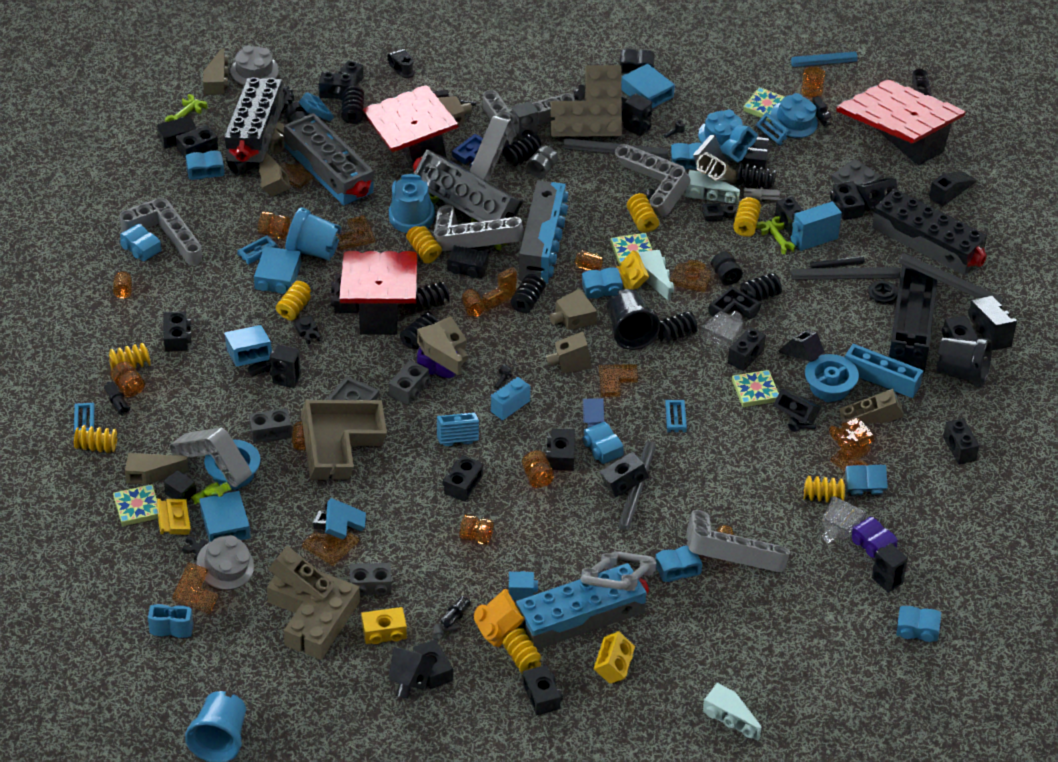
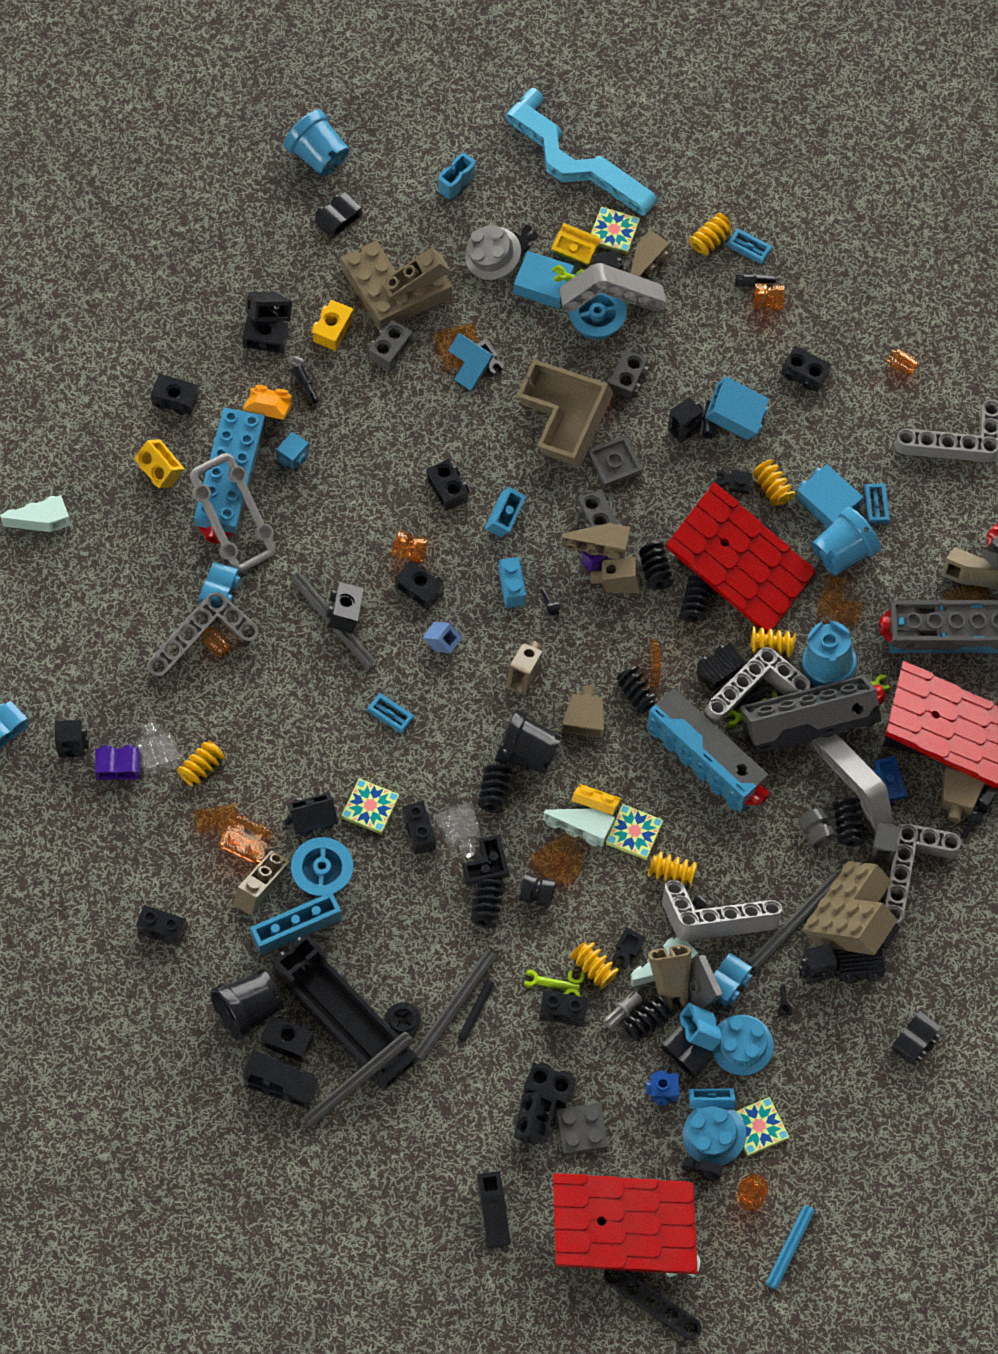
camera: 125 degrees right, 20 degrees up
(99, 571) = (565, 168): none -> medium azure beam
(134, 356) = (796, 313): yellow piece -> none
(140, 242) = (953, 407): dark azure brick -> none
(190, 591) = (480, 211): clear orange tile -> none
(273, 224) = (895, 529): clear orange wheel -> none
(273, 683) = (338, 215): none -> black brick
(473, 303) = (665, 634): clear orange brick -> none
(476, 529) = (382, 453): clear orange wheel -> none
(522, 650) = (216, 404): yellow piece -> none
(589, 260) = (643, 775): clear orange brick -> none
(602, 282) = (604, 765): dark azure brick -> none
(603, 442) = (401, 624): dark azure brick -> none
(612, 375) = (480, 693): clear orange tile -> none
(648, 84) = (867, 1018): dark azure brick -> none
(792, 148) = (663, 1088): none -> blue brick
(804, 346) = (373, 862): black slope -> none
(816, 226) = (527, 1011): dark azure brick -> none
(866, 479) = (184, 806): dark azure brick -> none
(930, 232) = (439, 1122): black piece -> none

